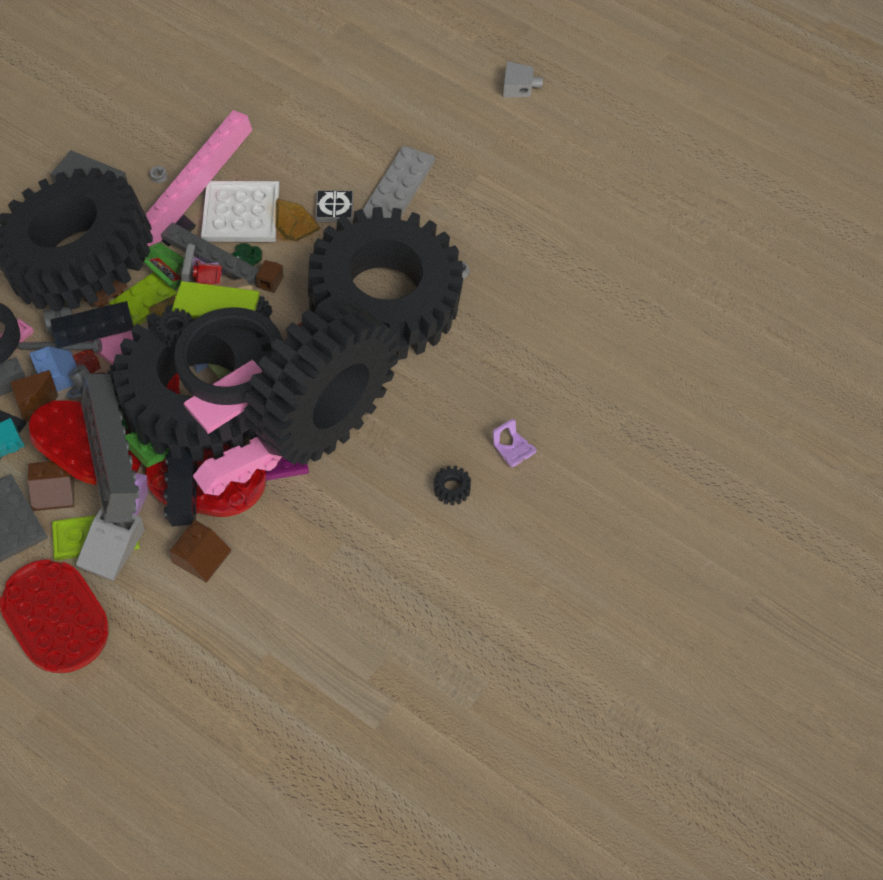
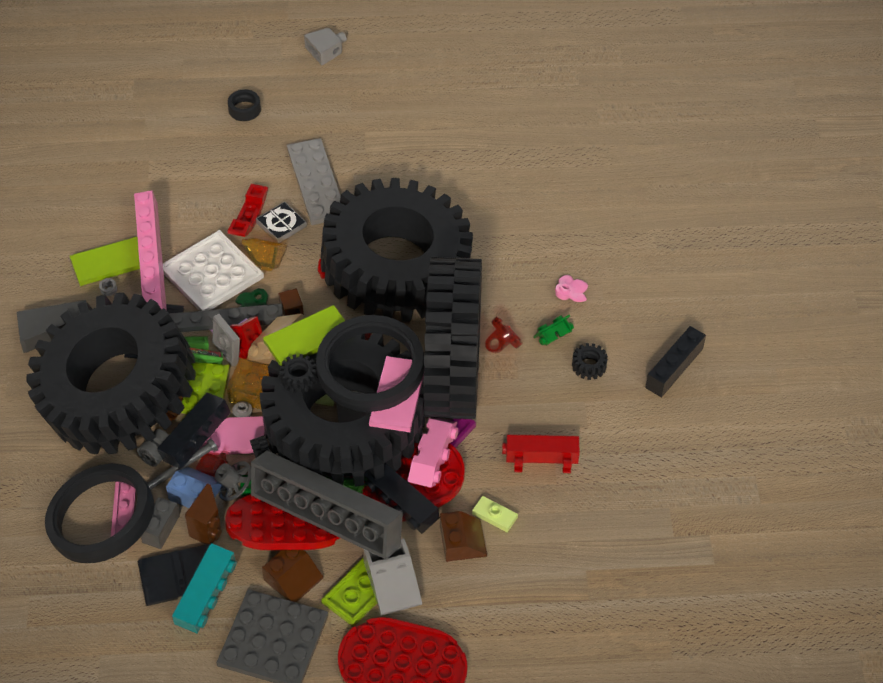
camera: 40 degrees left, 5 degrees down
(170, 151) = (106, 261): none -> lime tile
(246, 553) = (495, 514): none -> yellowish green plate
(308, 188) = (250, 211): none -> red slope
(333, 528) = (541, 449): none -> red brick
(403, 413) = (504, 335): none -> clear red tile
(404, 83) = (244, 96): none -> black tyre
(459, 439) = (547, 333): none -> green hinge
(506, 411) = (571, 289): none -> bright pink plate
(518, 450) = (607, 305): lavender piece -> none
(522, 536) = (675, 361): none -> black brick

